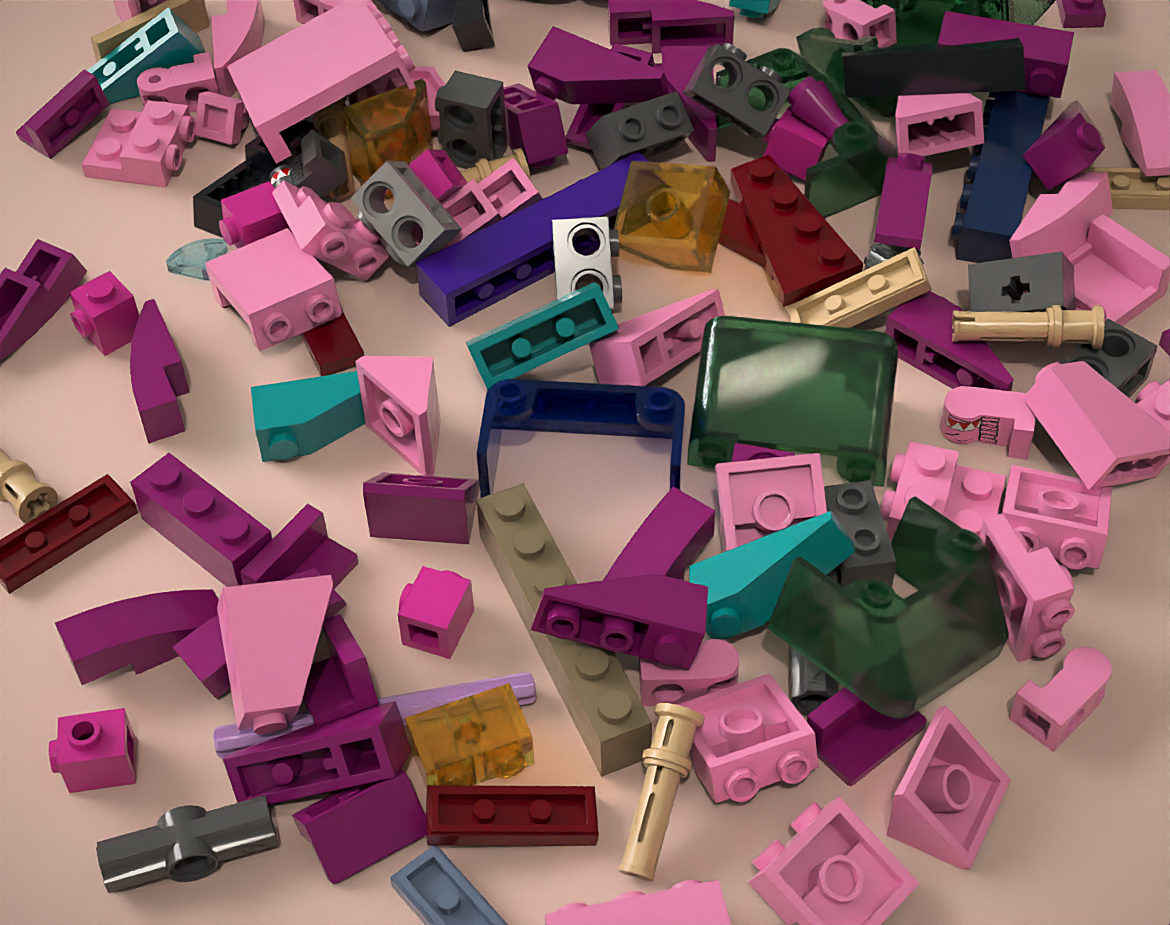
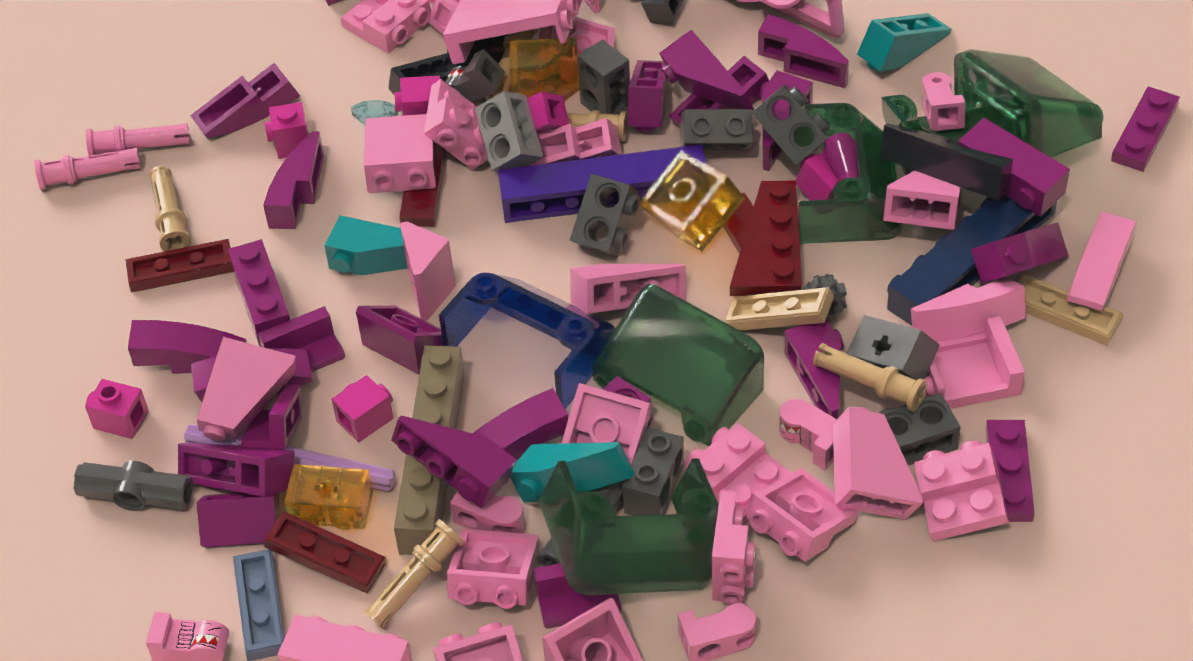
camera: 30 degrees right, 0 degrees up
(542, 335) = (542, 252): teal brick -> none
(904, 201) = (858, 252): magenta slope -> none

